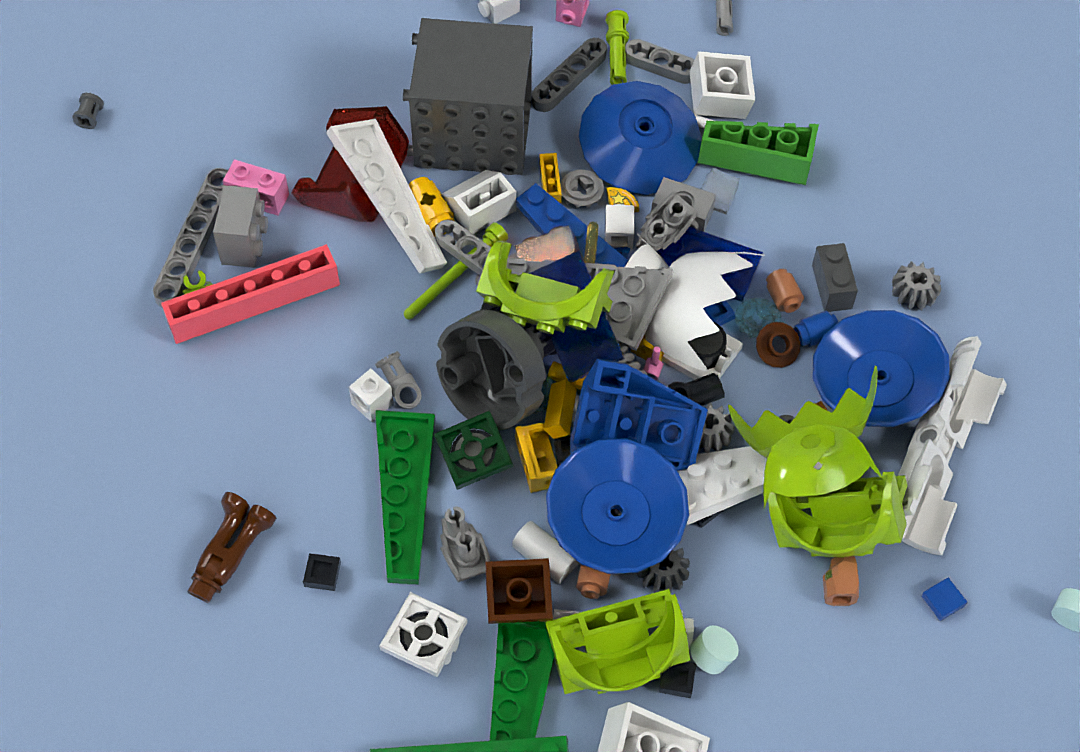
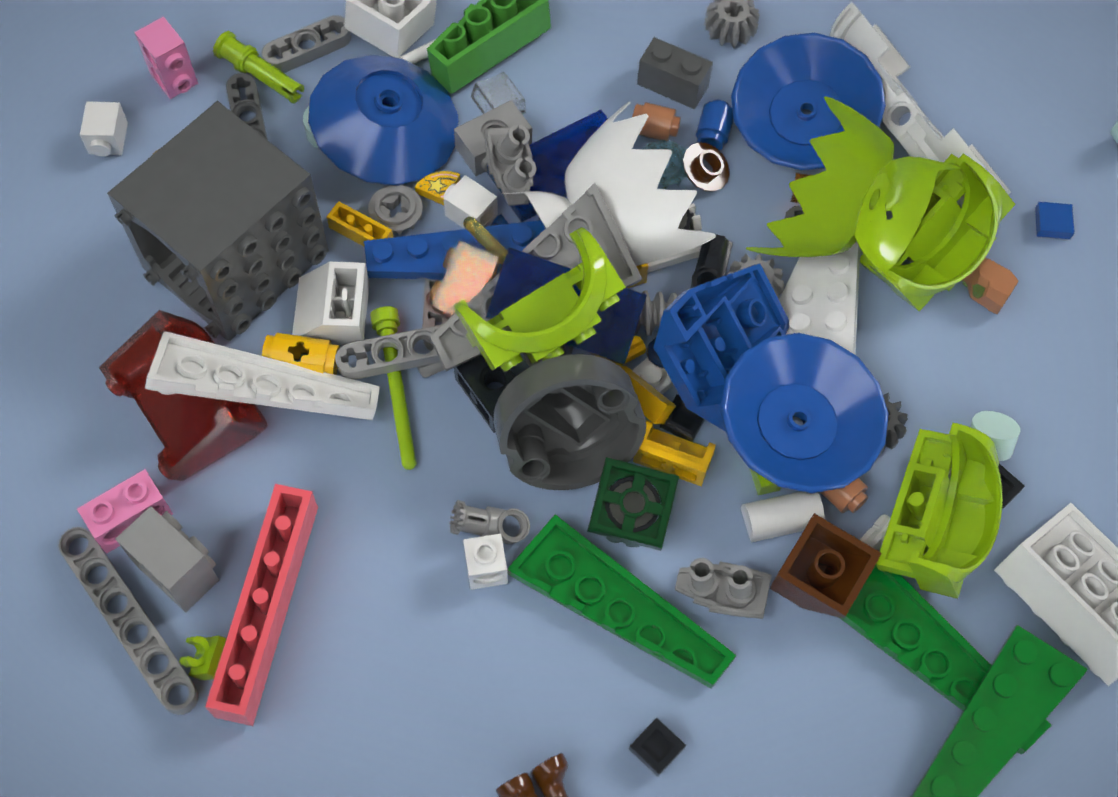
camera: 55 degrees left, 5 degrees up
(422, 636) = (808, 691): white piece -> none
(654, 365) = (649, 281): bright pink hand -> none

